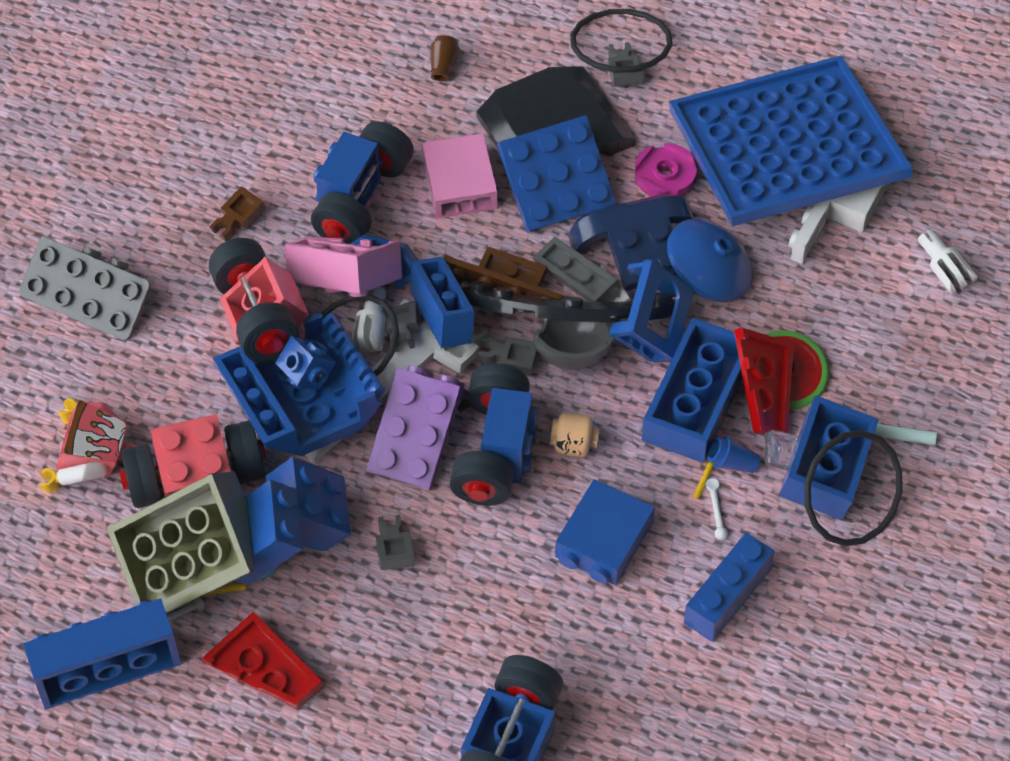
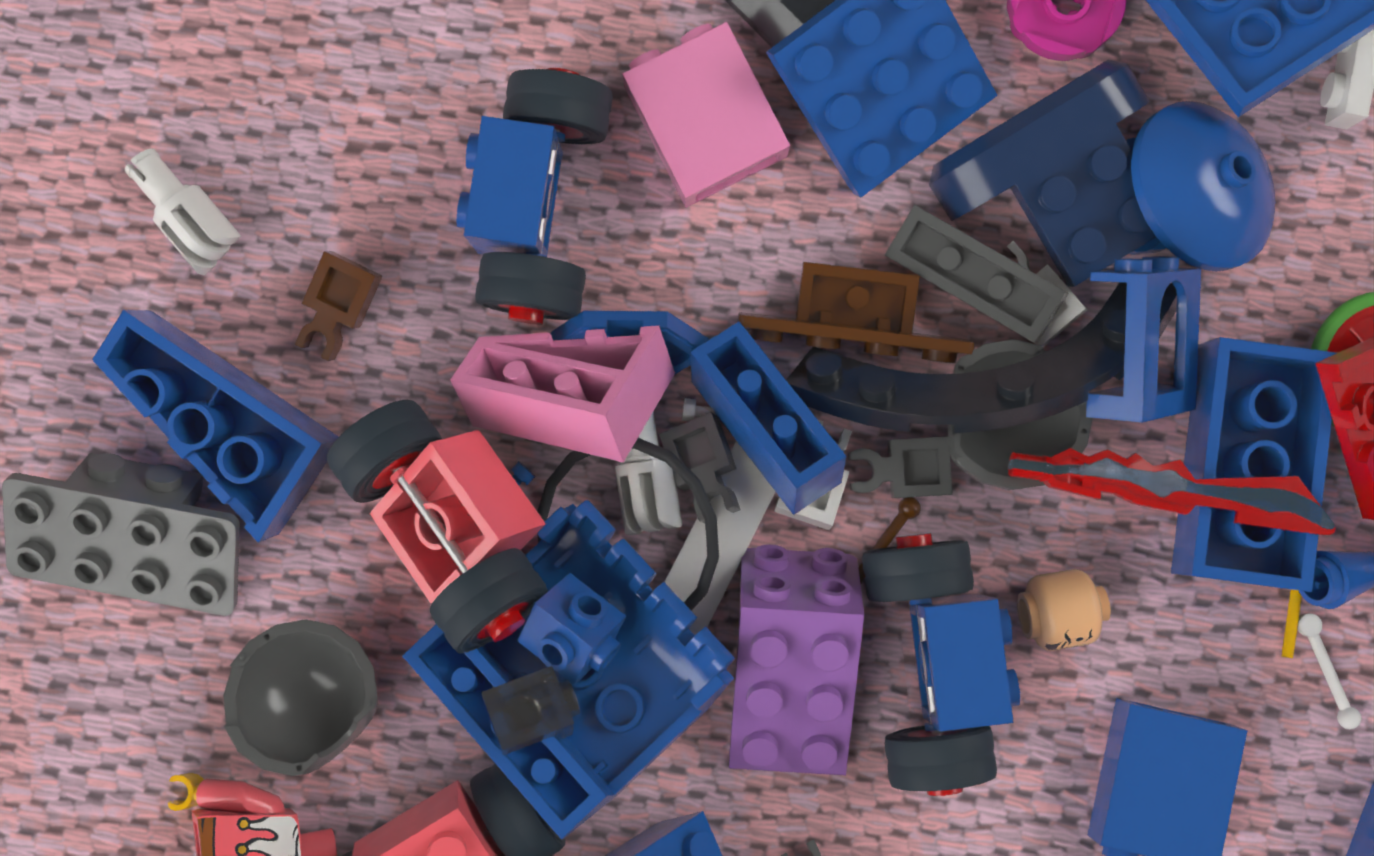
camera: 15 degrees left, 30 degrees up
(152, 371) = (298, 696): none -> dark grey cylinder
(164, 248) = (229, 426): none -> blue wedge
(176, 157) = (183, 213): none -> white arm
(272, 382) = (531, 709): none -> clear smoke bracket
(644, 374) = (1171, 487): none -> red sword

